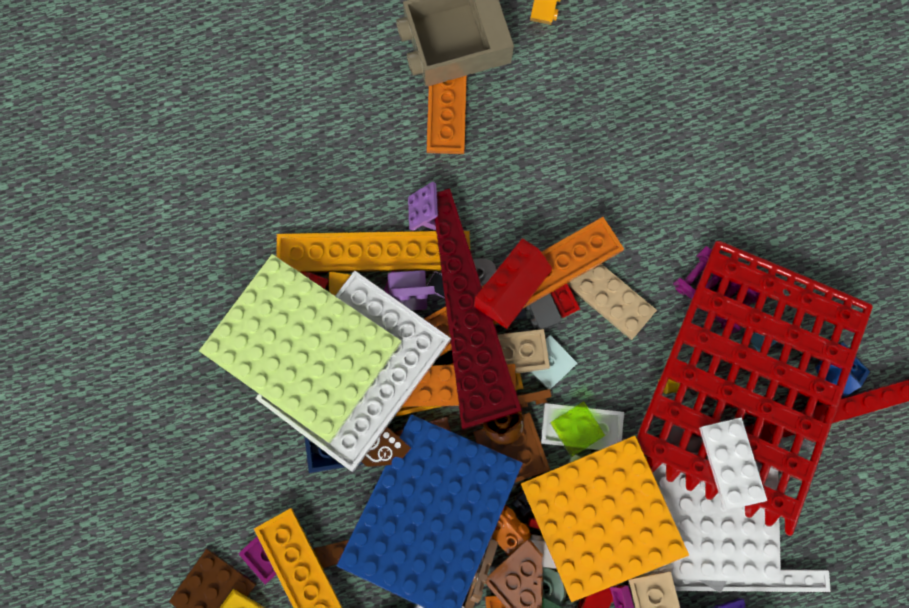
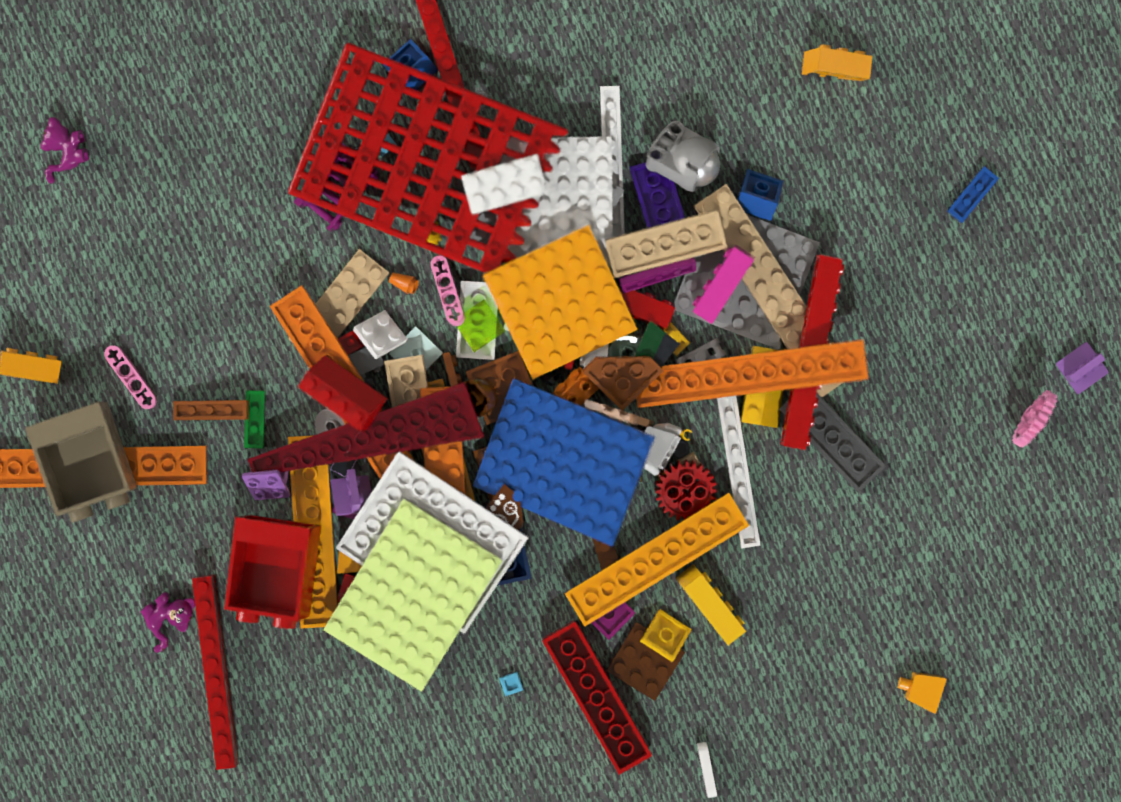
camera: 90 degrees left, 10 degrees up
(176, 539) = (597, 697): none -> red brick
(202, 445) = (511, 683): none -> medium azure tile
(239, 150) = (215, 672): none -> red brick
(300, 118) = (177, 613): none -> magenta animal
(336, 207) = (272, 570): none -> red brick
(488, 200) = (255, 426): none -> green plate
(499, 158) = (211, 410): none -> dark orange plate
(533, 86) = (128, 379): none -> bright pink beam
(570, 326) = (380, 334): none -> white plate
(613, 395) = (448, 290): none -> bright pink beam
(621, 355) = (404, 282): none -> orange cone
(762, 36) = (57, 138): none -> magenta animal

